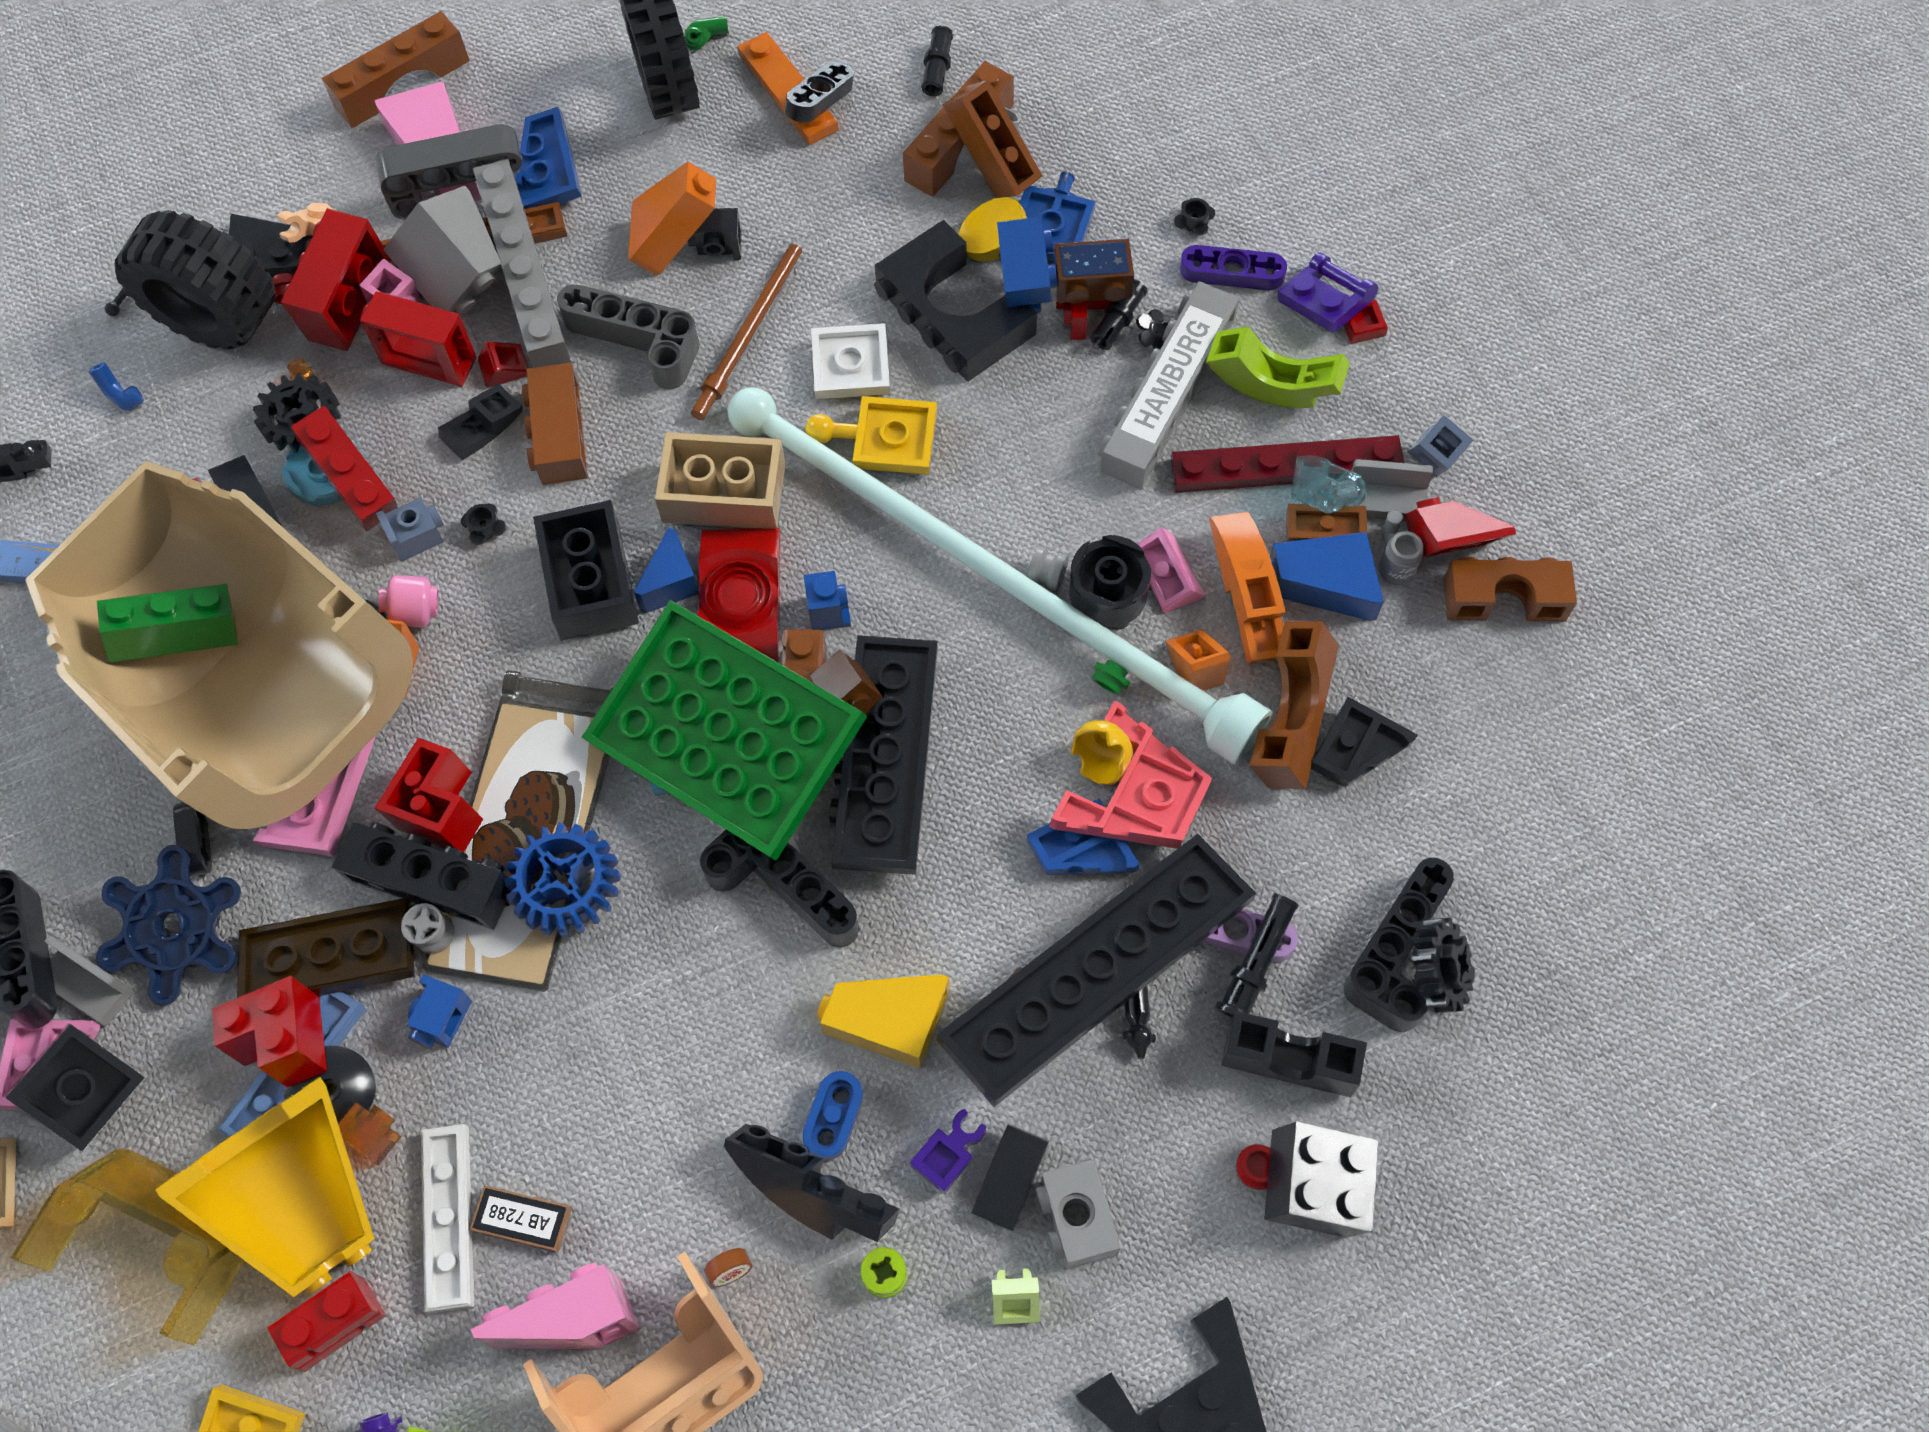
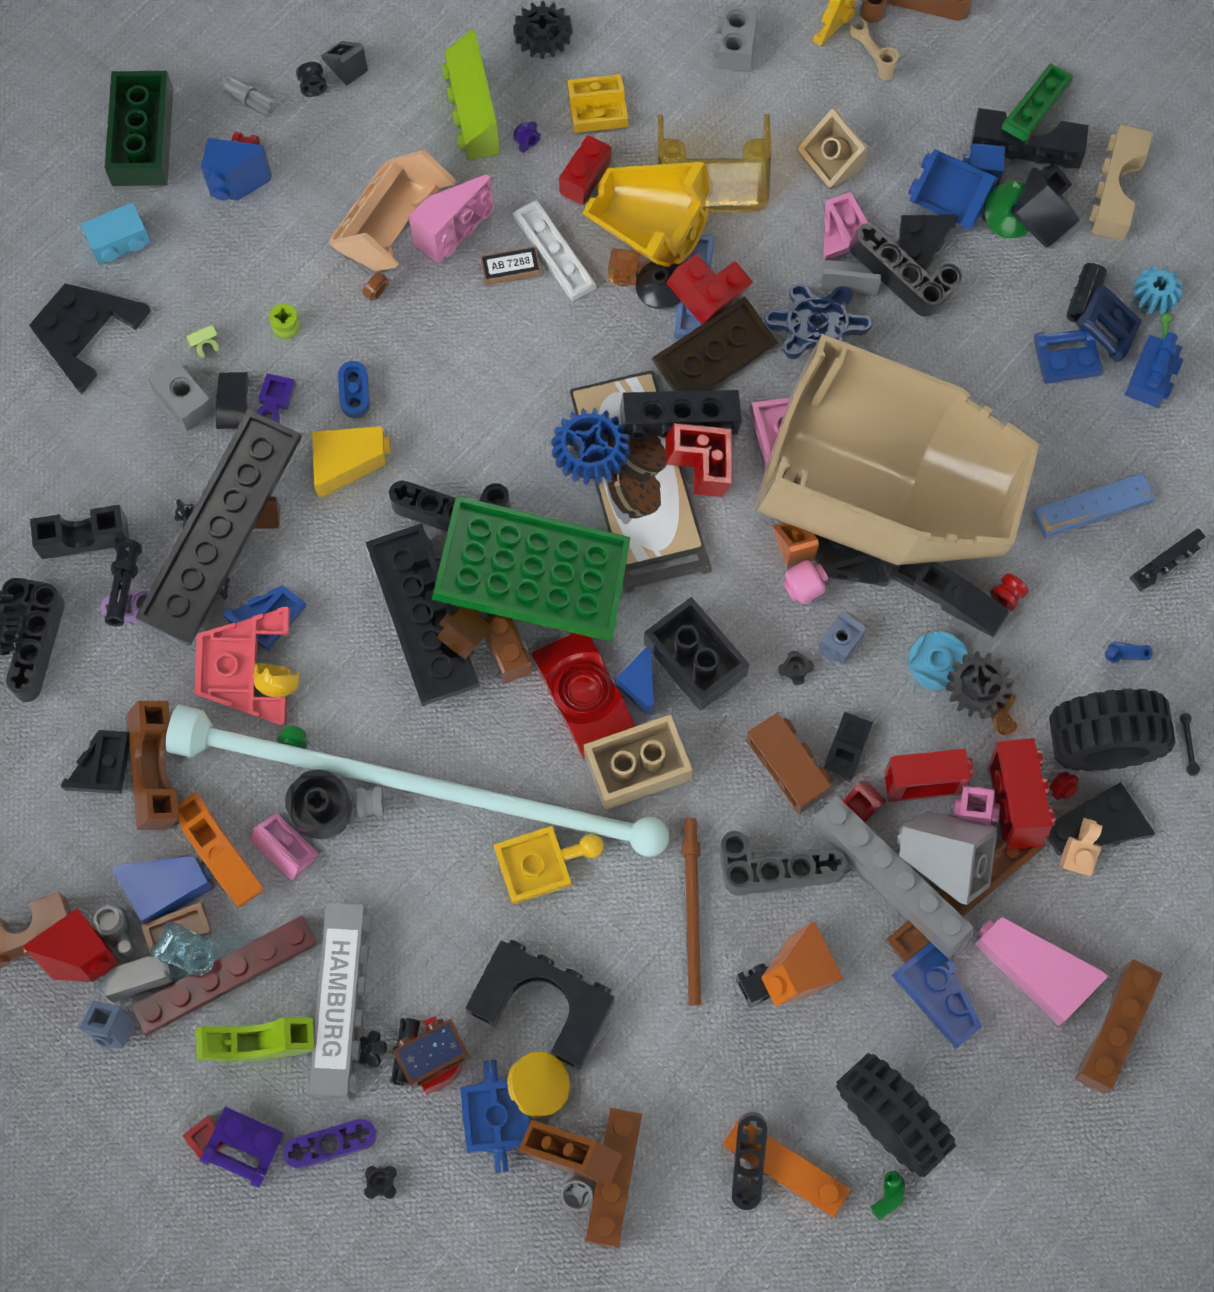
camera: 155 degrees right, 5 degrees up
(74, 1087) = (804, 212): black brick -> none
(167, 622) = (944, 481): green brick -> none
(344, 467) = (909, 649): red brick -> none
(420, 920) = (660, 378): light grey wheel -> none
(437, 1013) = (625, 345): blue brick -> none
(441, 163) = (1001, 932): dark grey beam -> none
(793, 1182) = (347, 338): black slope -> none
(826, 601) = (517, 708): blue brick -> none
(850, 361) = (597, 914): white plate -> none
(937, 60) = (669, 1252): black pin -> none
(1024, 262) = (487, 1032): blue brick -> none
(1199, 659) = (235, 778): orange slope -> none
(1253, 1166) = (83, 467): red plate -> none
(1321, 1180) = (39, 465): brick -> none

